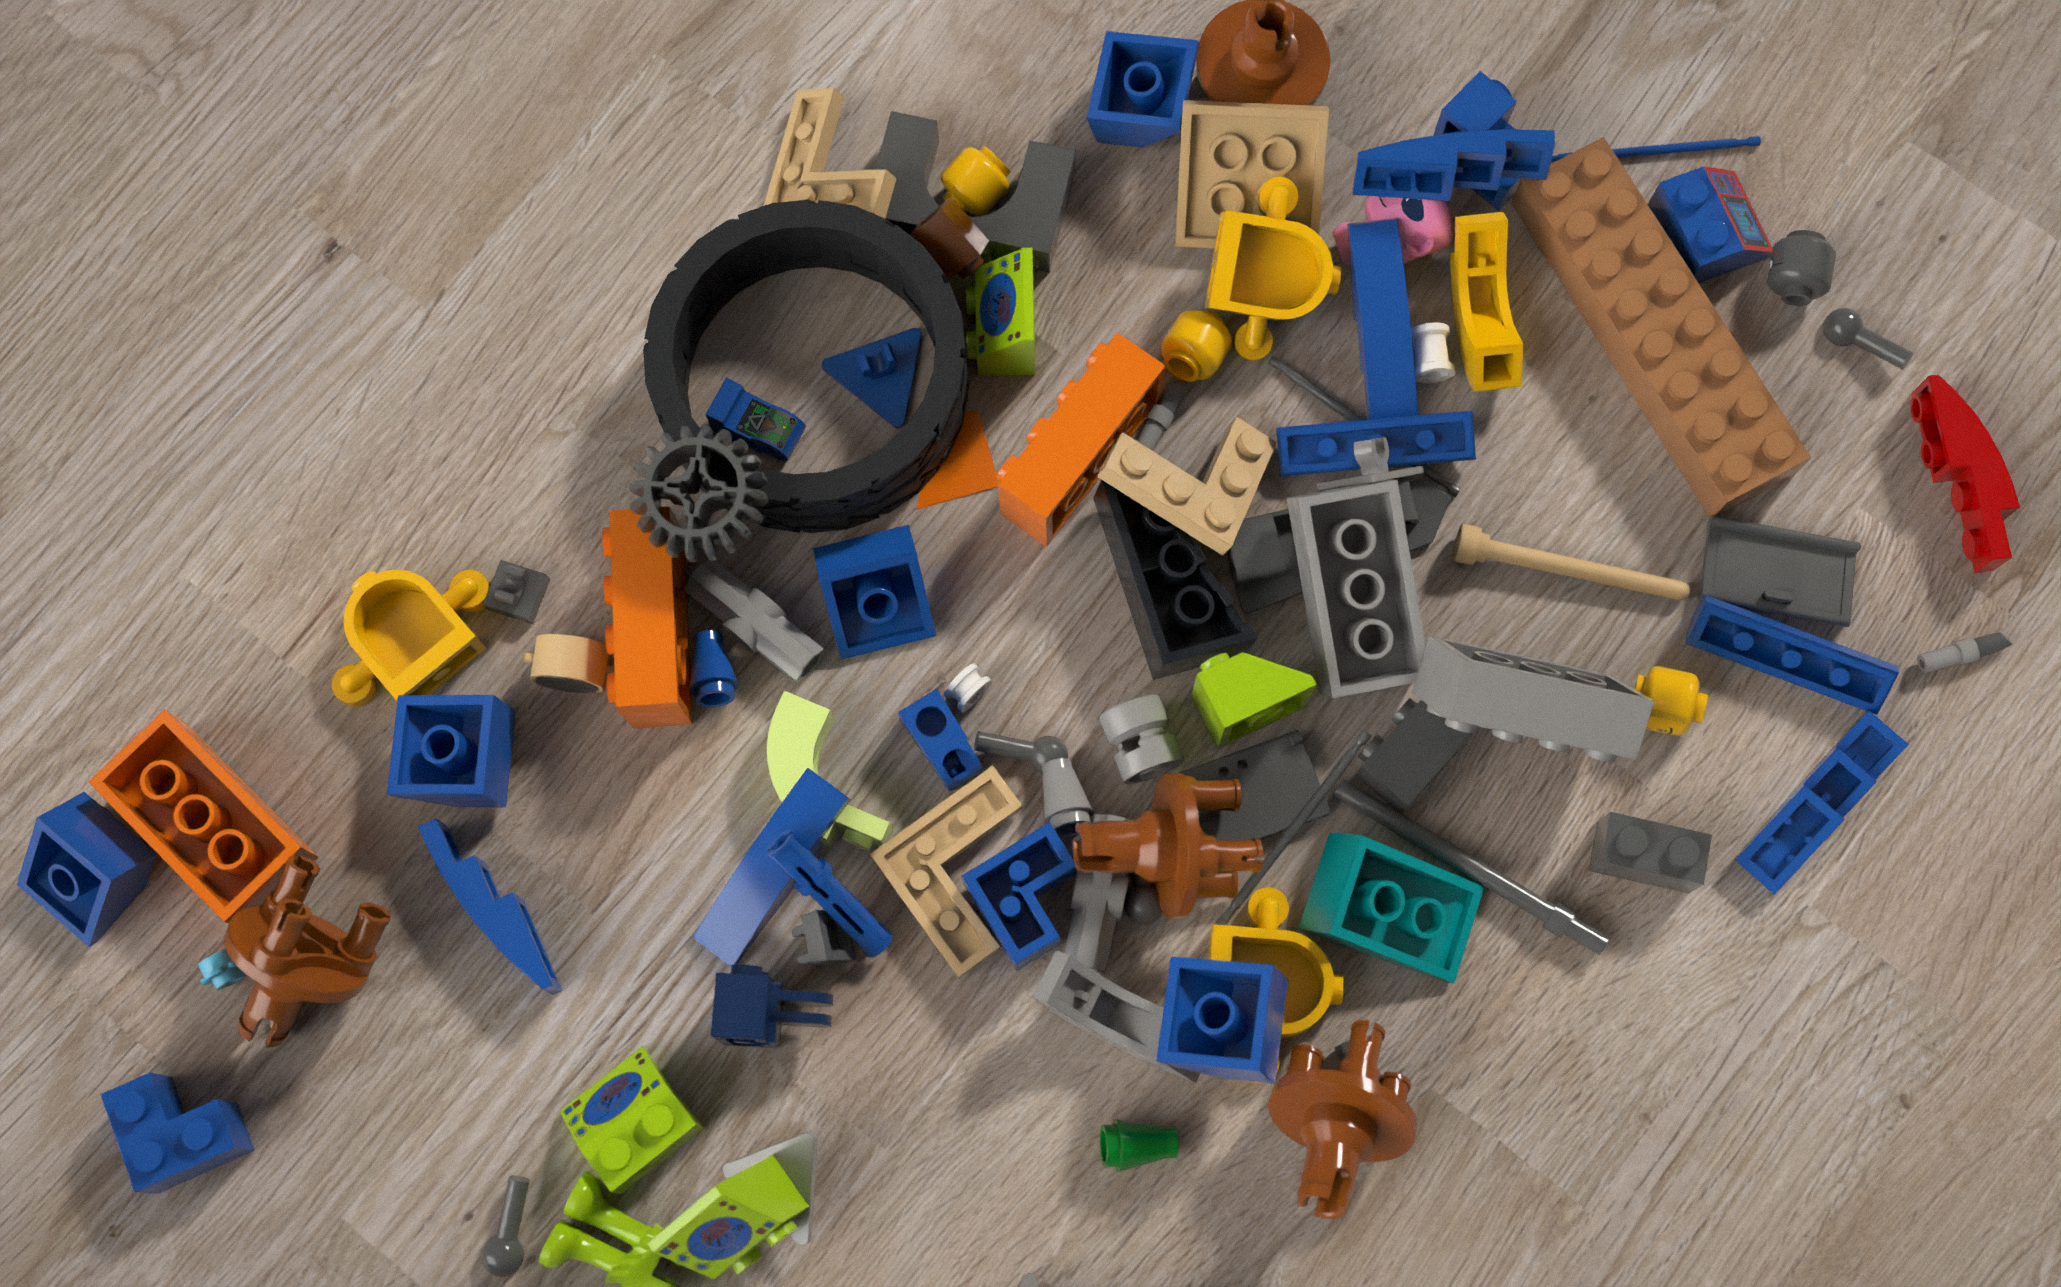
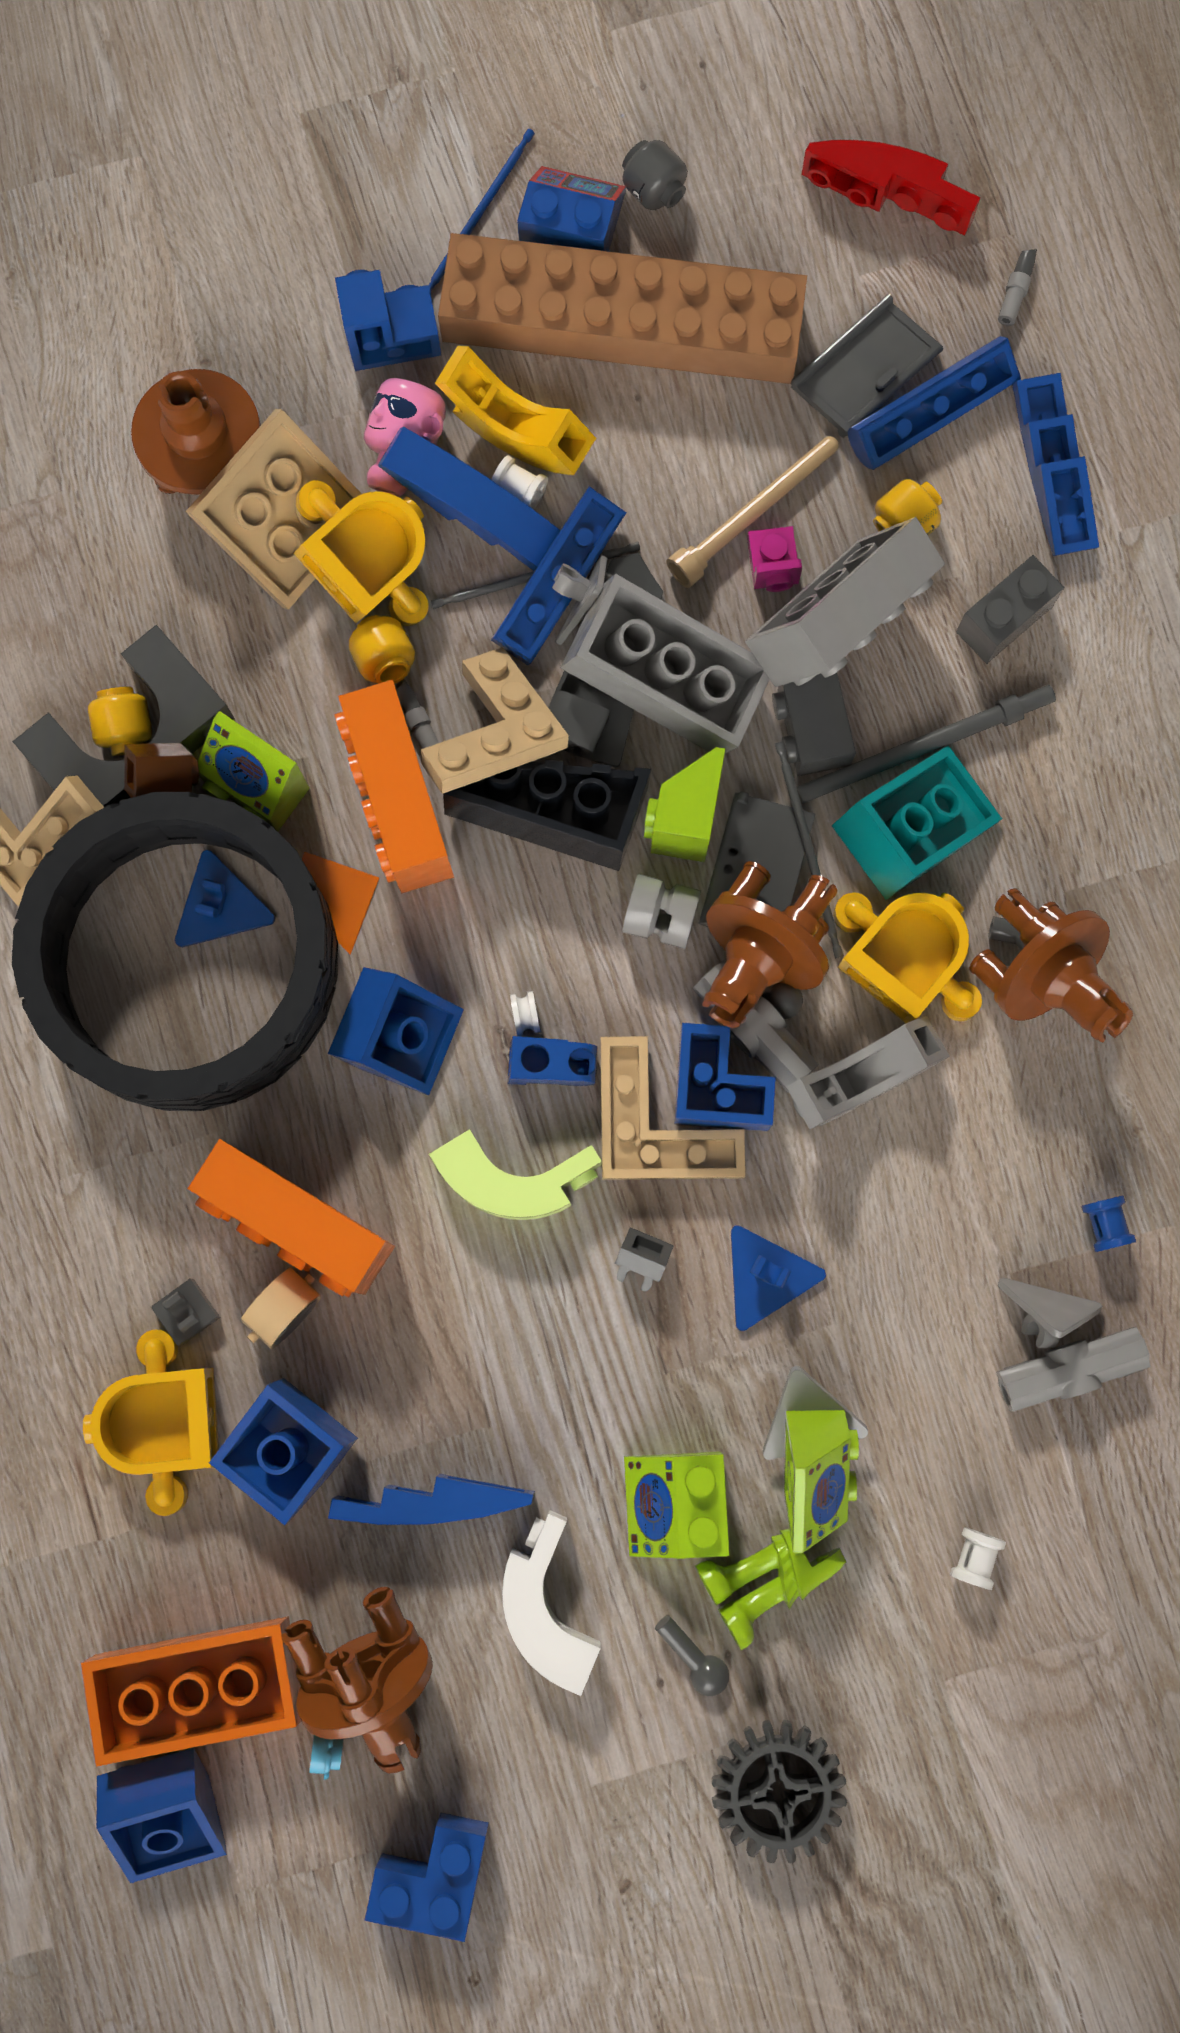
camera: 55 degrees left, 5 degrees up
(439, 1076) = (542, 1639): none -> white arch
(659, 486) = (213, 1123): dark grey gear -> none
(711, 671) = (367, 1201): blue cone -> none
(751, 1008) = (663, 1349): dark blue brick -> none
(754, 620) = (350, 1140): light grey piece -> none
(757, 422) = (188, 1028): blue leg -> none
(759, 881) = (559, 1261): blue slope -> none
(816, 879) = (599, 1231): blue pin -> none
(886, 1060) = (766, 1276): none -> blue piece
(1036, 752) = (617, 992): dark grey bar -> none
(1064, 797) = (664, 1001): light grey cone -> none
(1135, 1144) = (960, 1135): green cone -> none
(1140, 88) = (145, 537): blue slope -> none
(1223, 1018) = (924, 1000): blue slope -> none
(1438, 163) = (385, 363): blue slope -> none
(1536, 615) = (774, 559): none -> dark pink bracket
(1846, 328) = (719, 181): dark grey bar -> none

